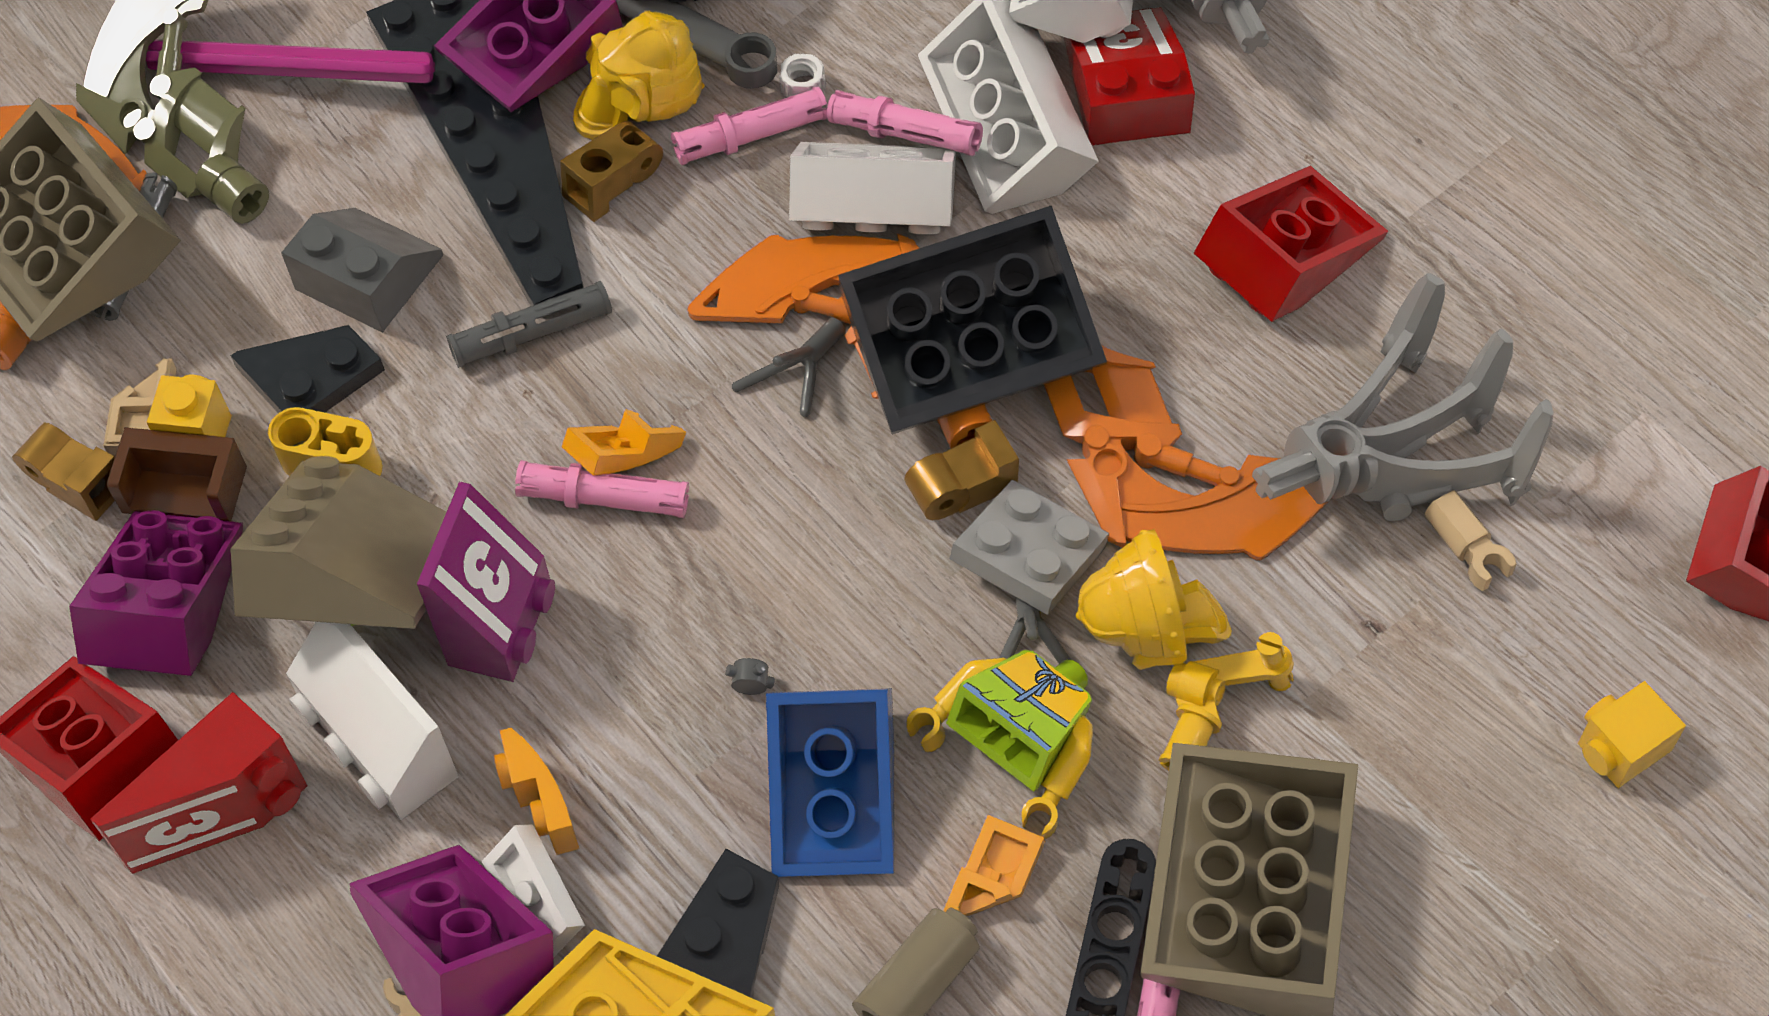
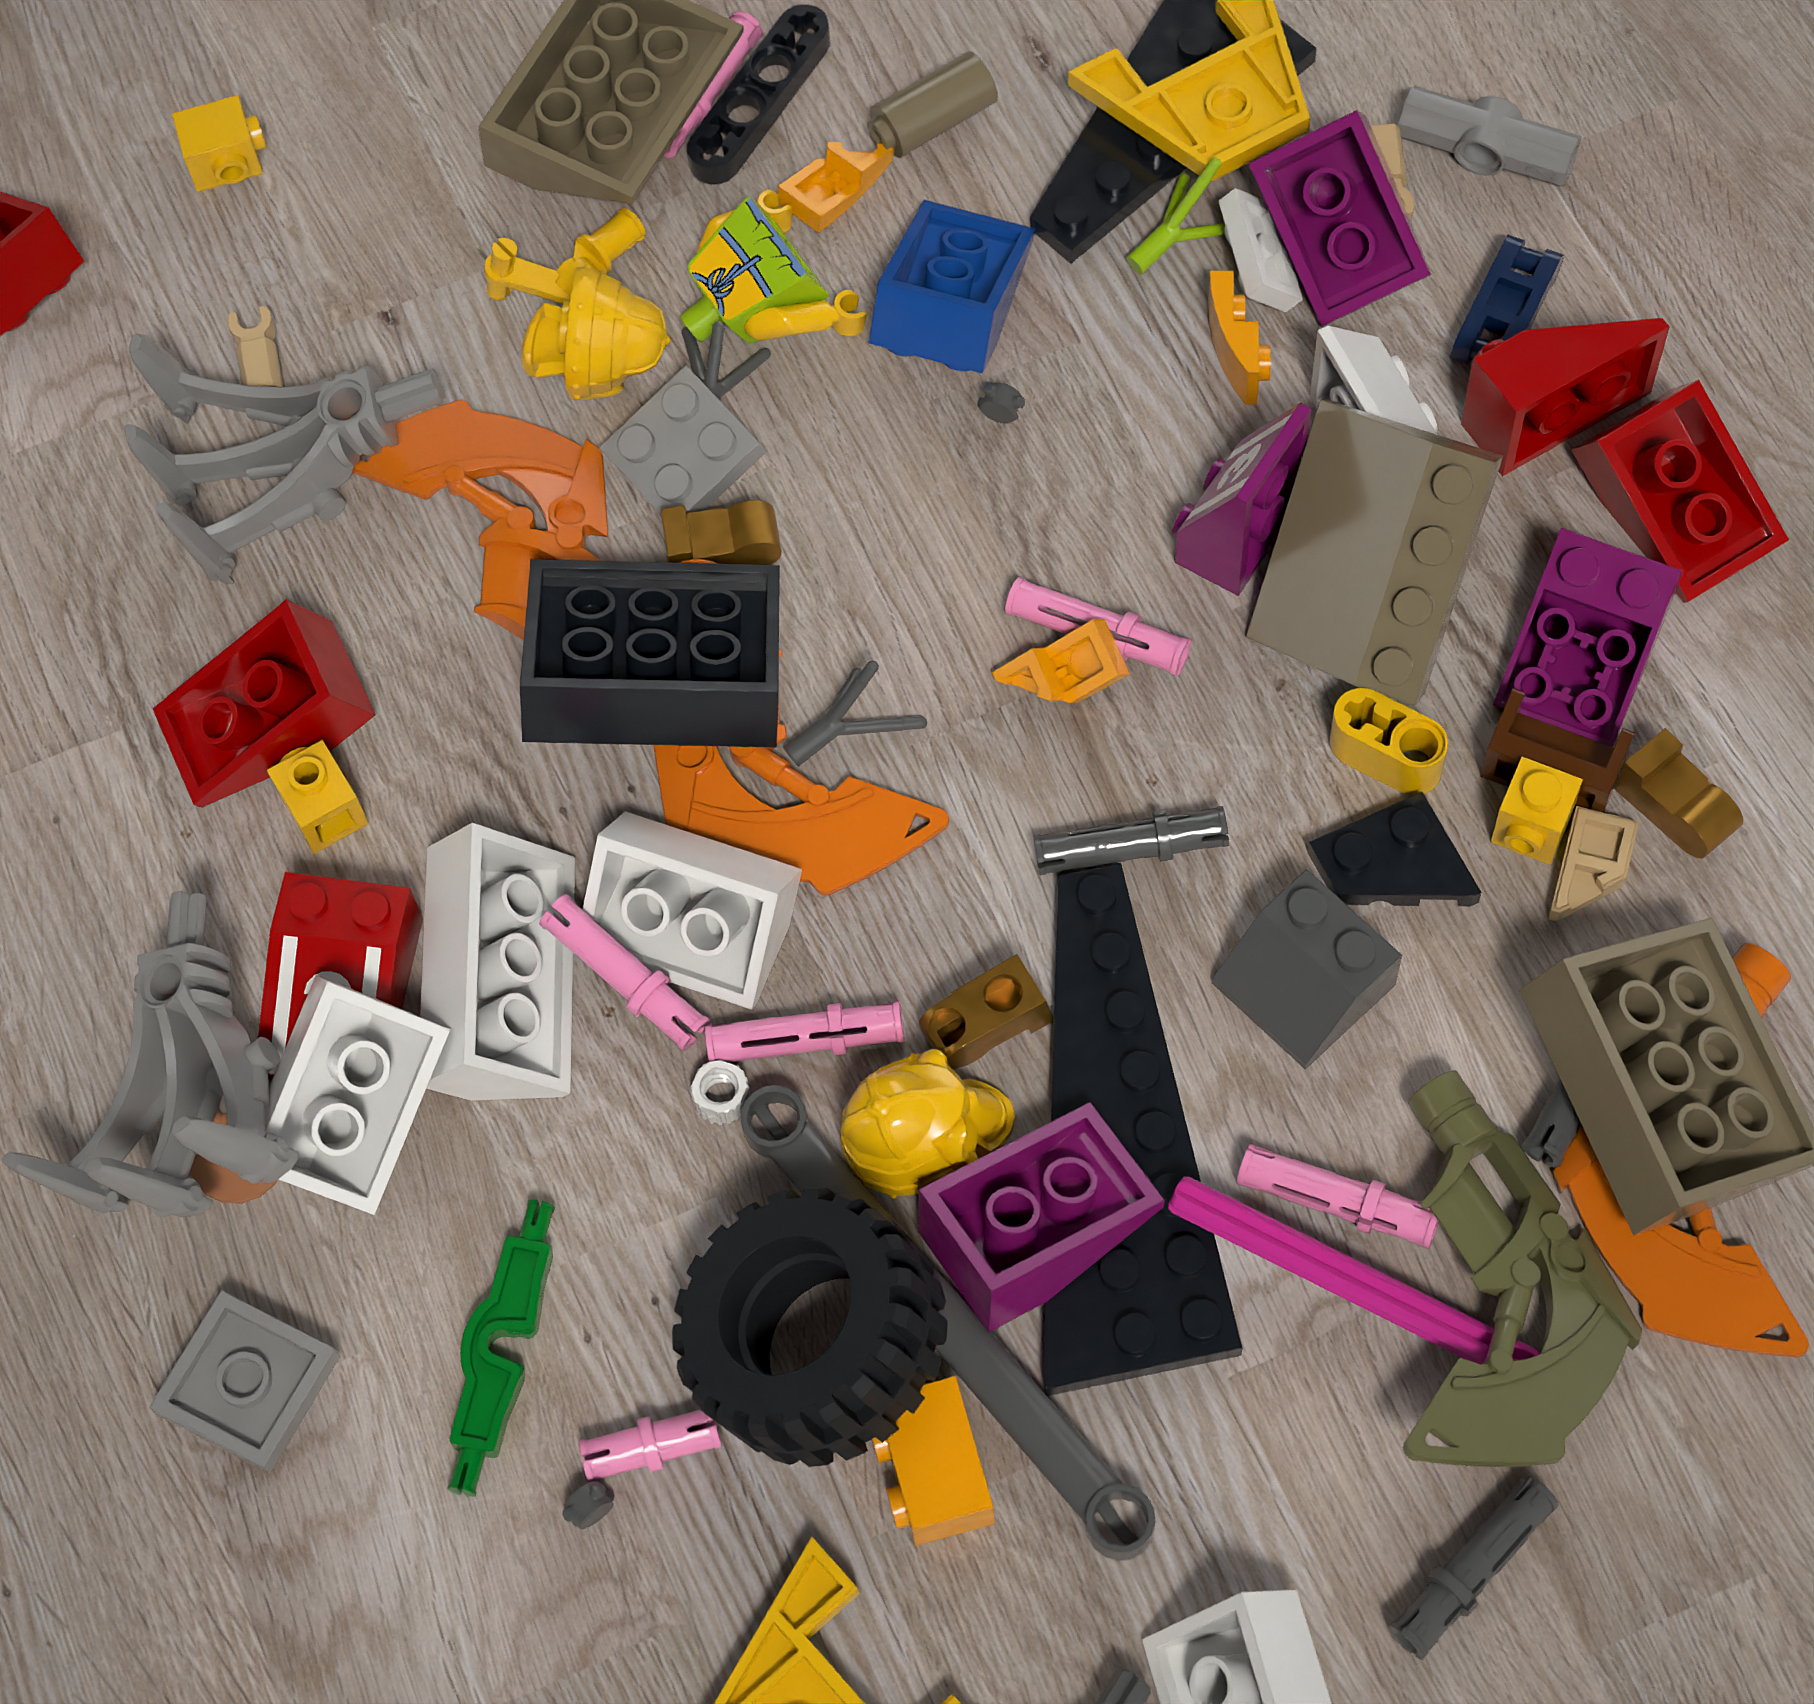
camera: 160 degrees left, 5 degrees up
(272, 907) = (1507, 298): none -> dark blue plate
(293, 119) = (1328, 1192): none -> bright pink pin
(631, 900) = (1169, 231): none -> lime plant
(1205, 180) = (317, 796): none -> yellow brick

